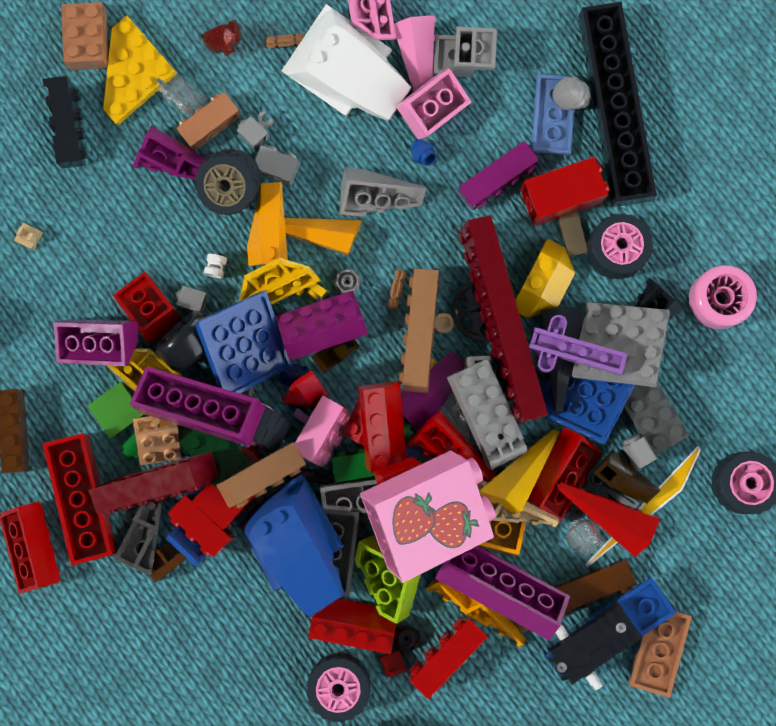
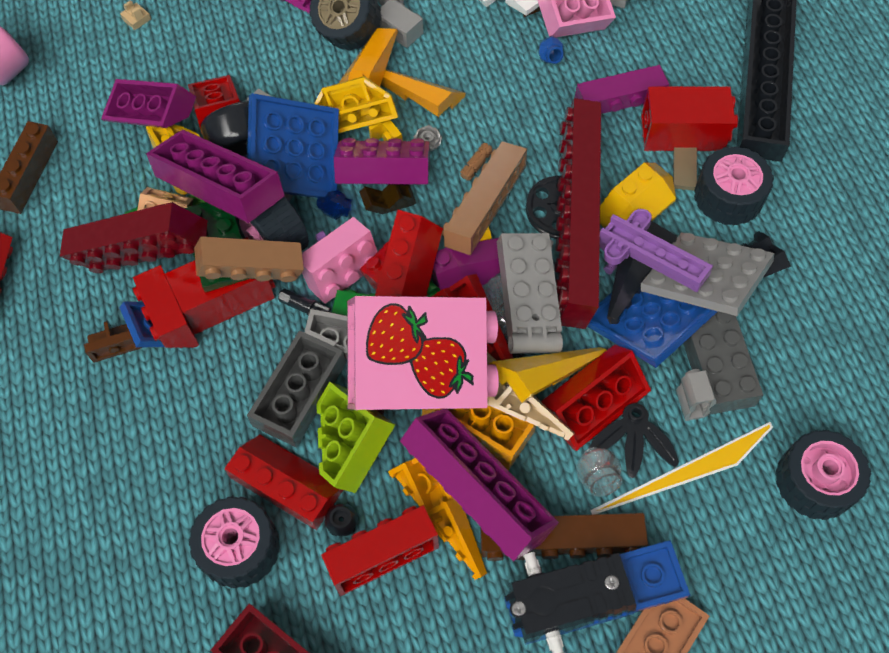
camera: 20 degrees right, 20 degrees down
(72, 476) = (42, 277): red brick -> none
(114, 411) = (131, 181): bright green tile -> none
(140, 541) = (89, 313): flat silver wedge -> none
(215, 266) = (300, 86): white wheel -> none
(295, 545) = (253, 359): blue wedge -> none
(305, 392) = (335, 201): red wedge -> none
(371, 192) = (489, 72): light grey wedge -> none
(393, 663) = (312, 544): red tile -> none
(444, 323) = (514, 207): tan tile -> none
(551, 124) = (698, 56): medium blue tile -> none
(572, 94) = (722, 41): light grey hair -> none
(625, 478) = (671, 423): dark brown slope -> none
(627, 526) = (656, 475): red wedge -> none
(737, 293) = (840, 265): bright pink wheel -> none

